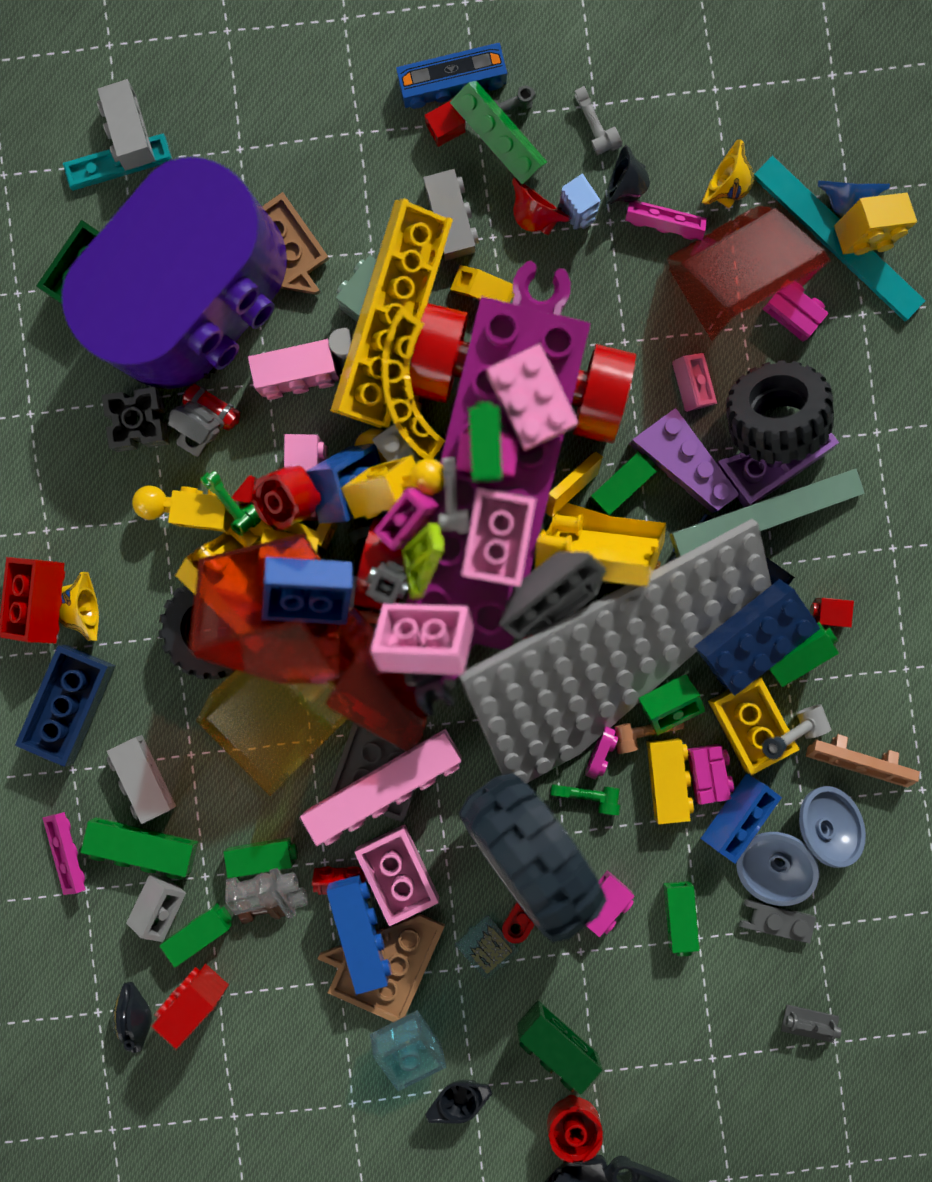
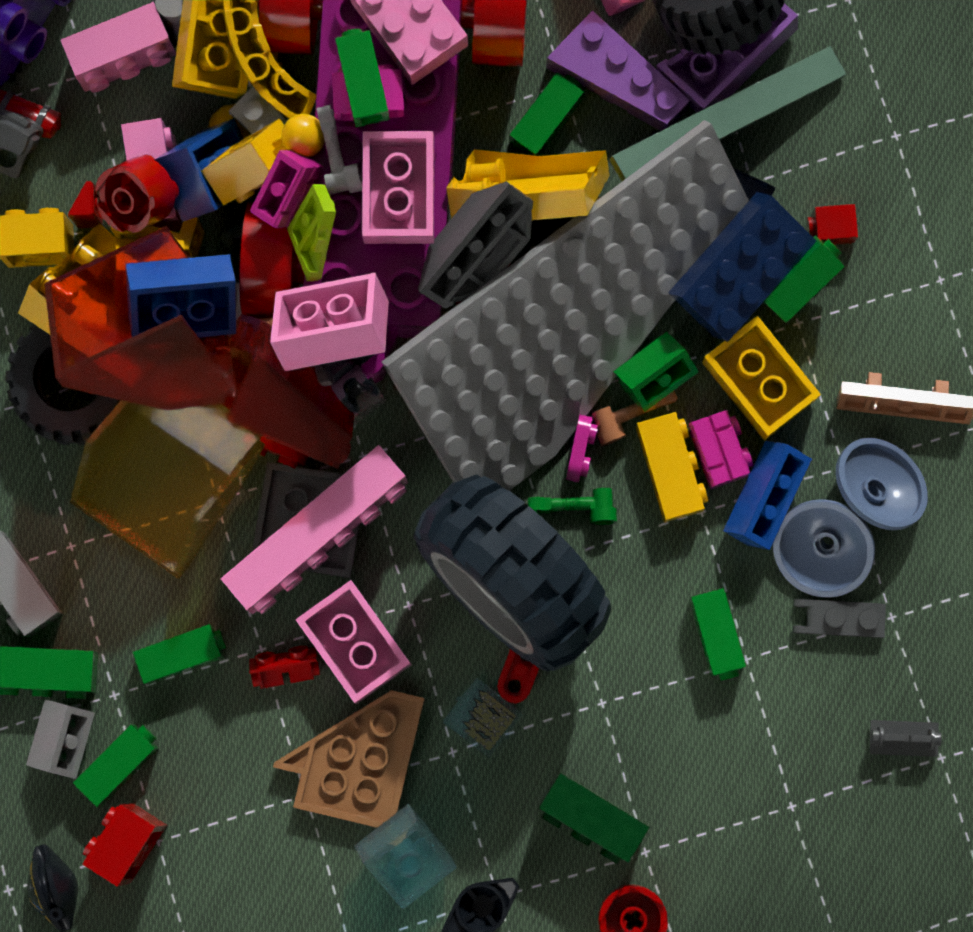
camera: 10 degrees left, 5 degrees down
(243, 518) = (89, 236): green brick -> none
(265, 894) = (194, 697): clear hips -> none
(358, 934) = (318, 721): blue brick -> none
(380, 590) = (266, 278): dark grey brick -> none
(573, 483) = (484, 124): yellow tile -> none
(618, 900) = (623, 629): dark pink brick -> none
(812, 724) = (832, 362): light grey piece -> none

